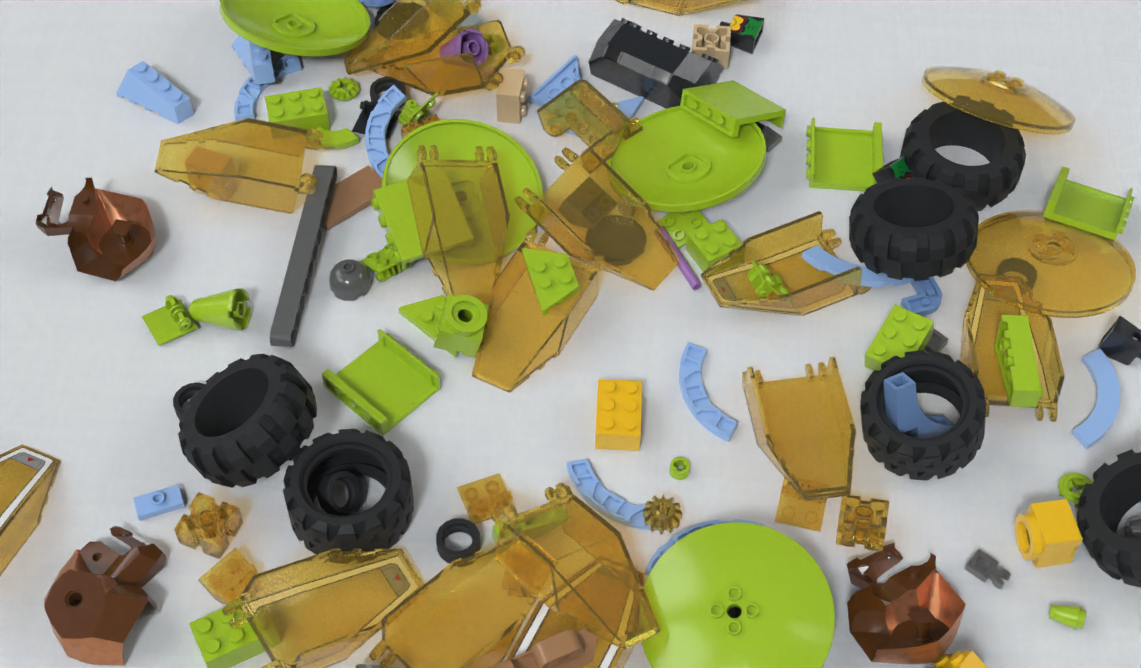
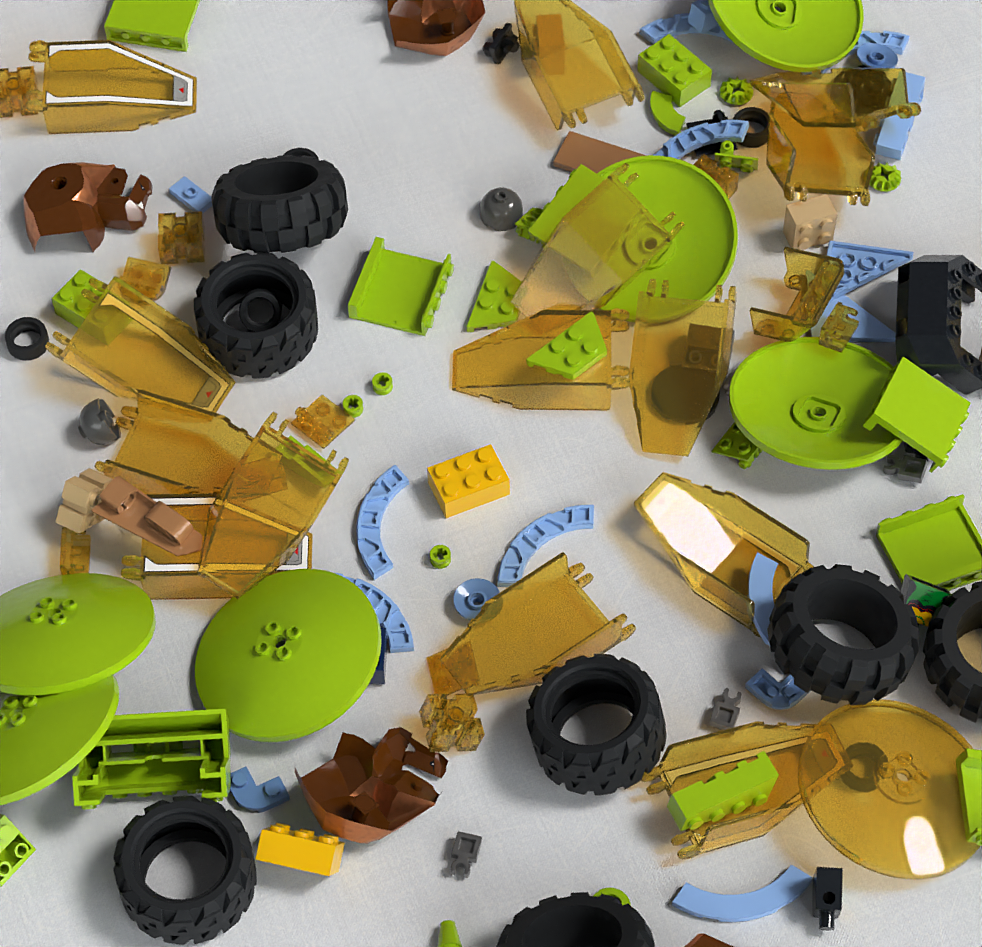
camera: 65 degrees right, 5 degrees up
(169, 321) = (376, 106): lime hinge -> none
(183, 202) = (504, 42): none -> black hips
(223, 309) = (406, 136): lime cone -> none
(303, 258) = (505, 160): dark grey beam -> none
(453, 526) = (263, 405): black tyre -> none
(461, 324) = (485, 308): lime piece -> none
(467, 41) = (832, 156): medium lavender cone -> none
(473, 444) = (382, 390): none -> lime bush
(487, 464) = (353, 399): none -> lime bush
(662, 514) = (371, 557): clear yellow gear -> none
(683, 265) = (705, 446): medium lavender piece -> none
(711, 244) = (727, 472): lime brick -> none
(741, 450) = (470, 592): none -> medium blue dish
(764, 281) = (697, 537): lime hinge -> none
(899, 334) = (693, 681): lime brick -> none
(904, 410) = (589, 704): medium blue arch -> none
(1047, 533) = (524, 881): yellow piece -> none

